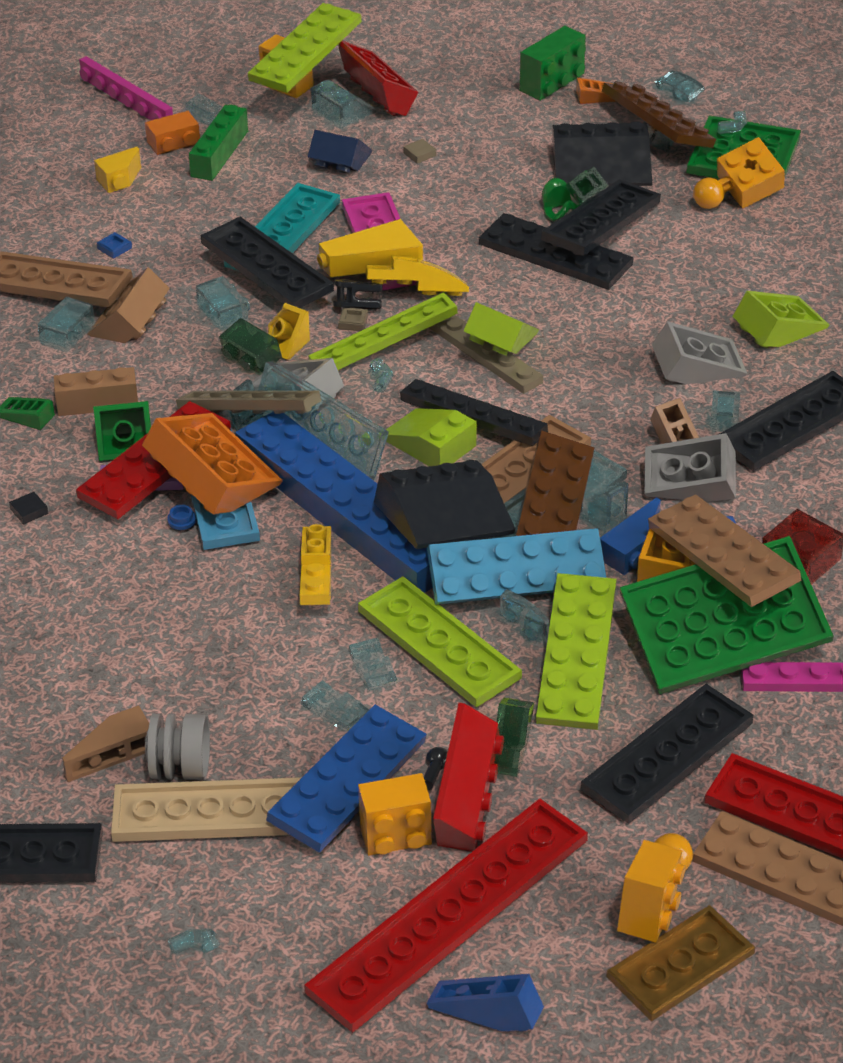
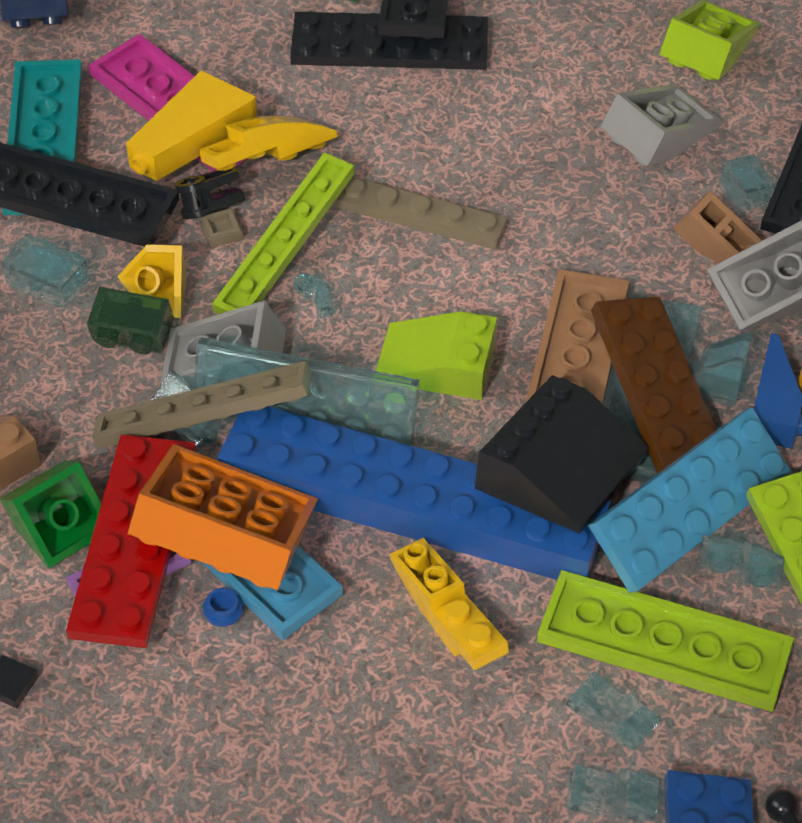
camera: 30 degrees left, 10 degrees up
(488, 416) = (502, 301): black plate -> none
(498, 329) = (426, 178): lime slope -> none

